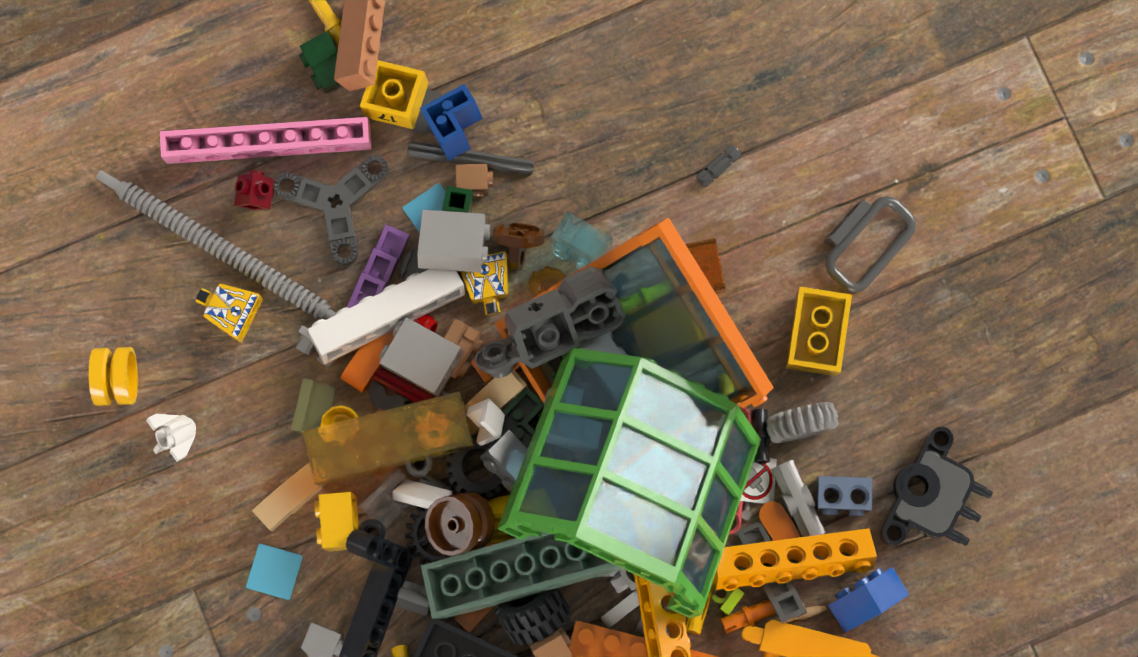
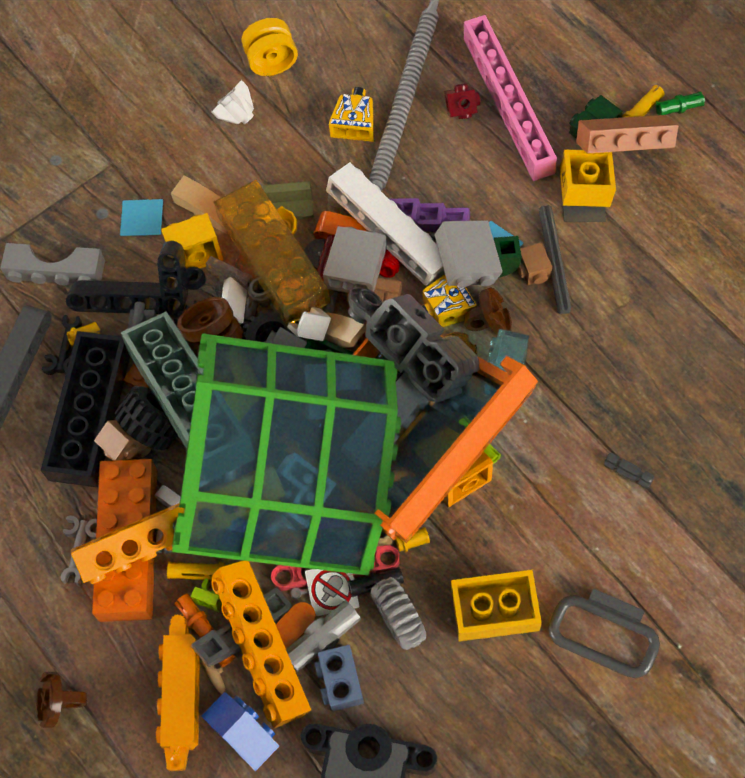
camera: 75 degrees right, 15 degrees down
(339, 219) = (488, 172): dark grey piece -> none
(448, 117) = (581, 224): blue brick -> none
(708, 260) = (522, 483): clear orange brick -> none

